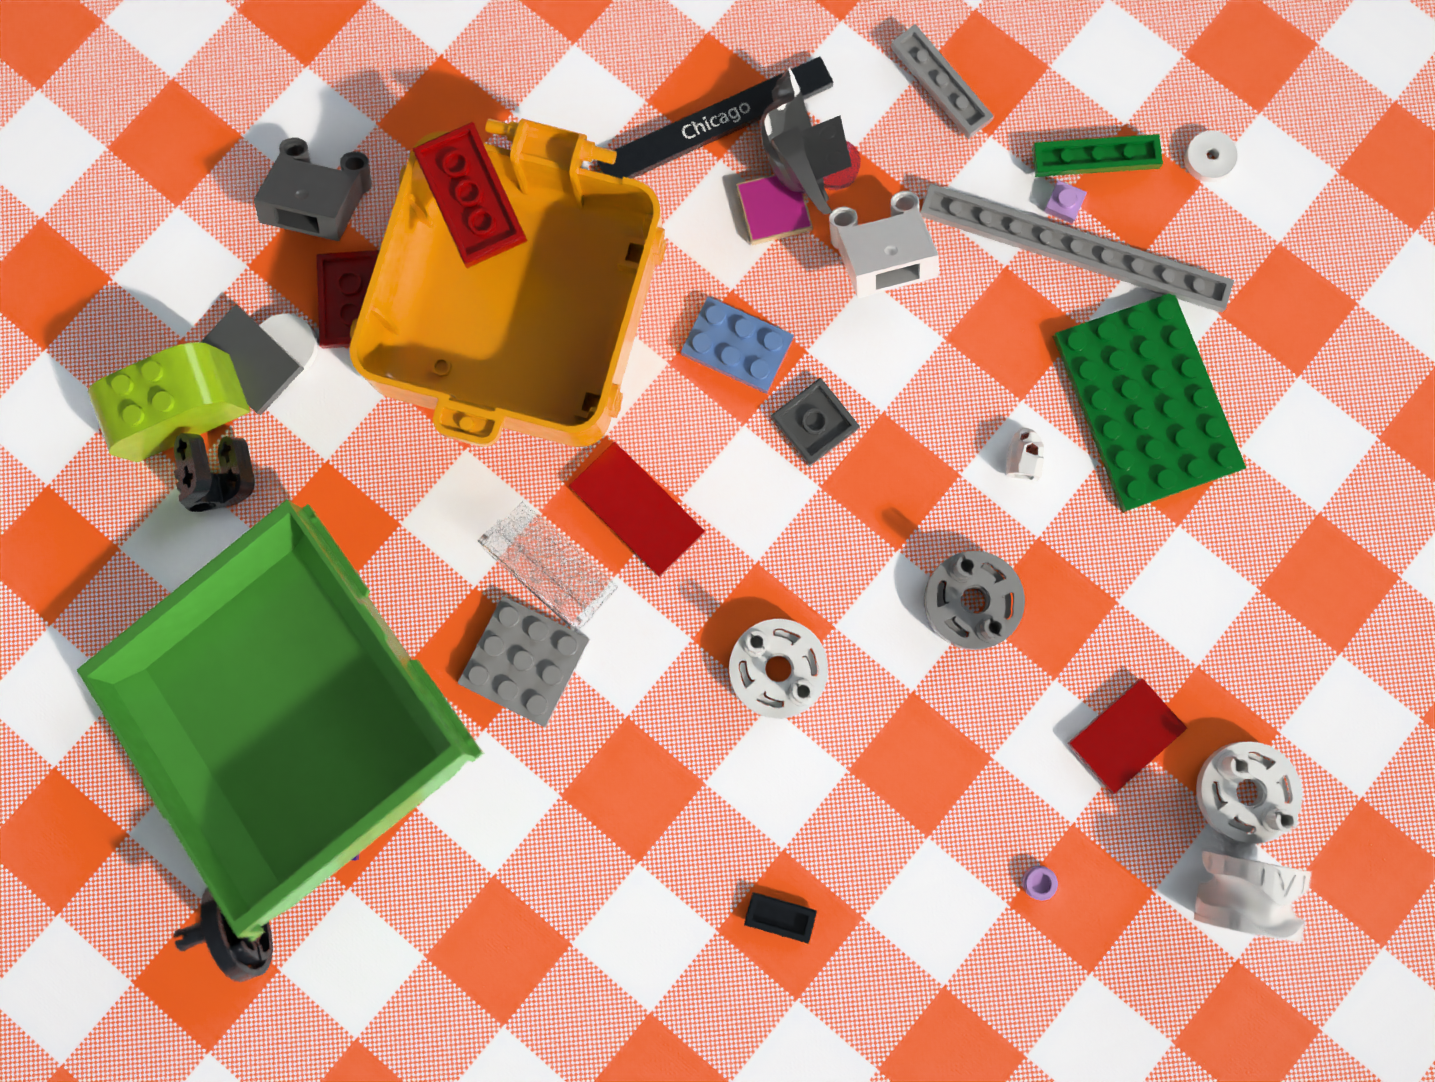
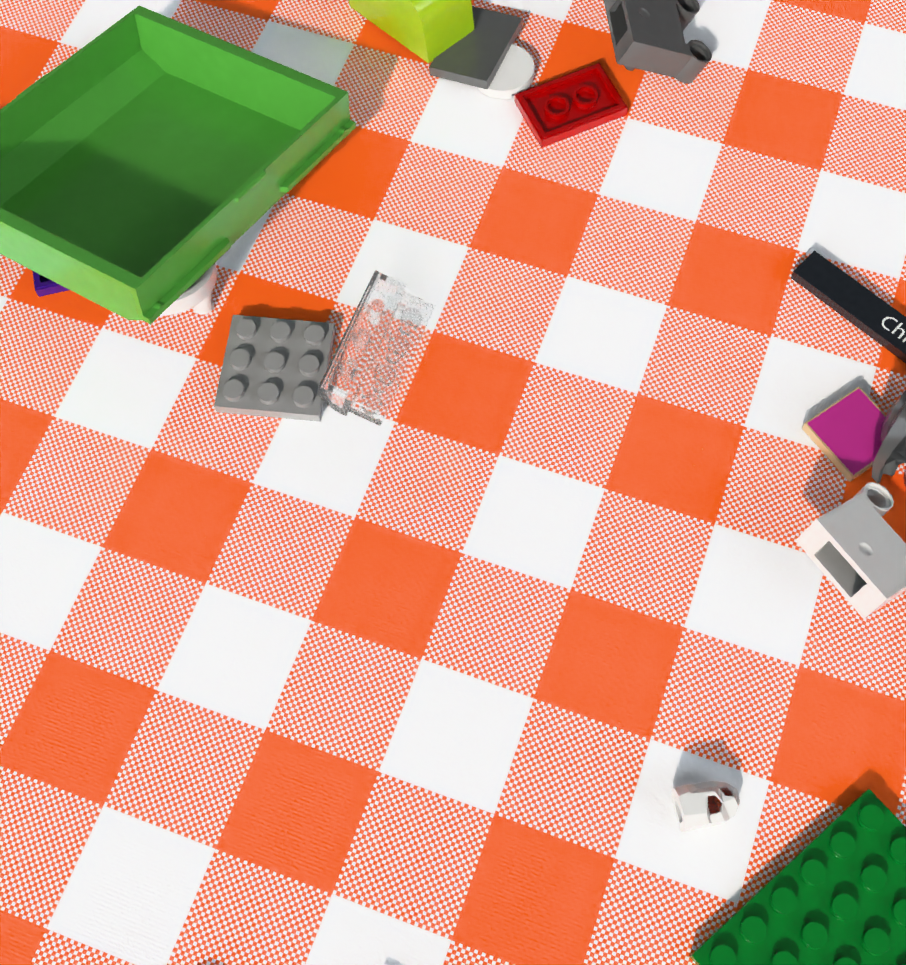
camera: 70 degrees right, 15 degrees down
(205, 489) = (341, 53): black piece -> none
(469, 195) = (708, 121): red tile -> none
(530, 333) = (642, 207): light orange container -> none
(637, 509) = (470, 416): red tile -> none
(737, 345) = (687, 450): medium blue plate -> none
(780, 917) = (78, 710): black tile -> none
(799, 689) = (363, 581): white piece -> none
(815, 422) = (639, 557): dark grey tile -> none
(966, 572) = (533, 776): light grey piece -> none

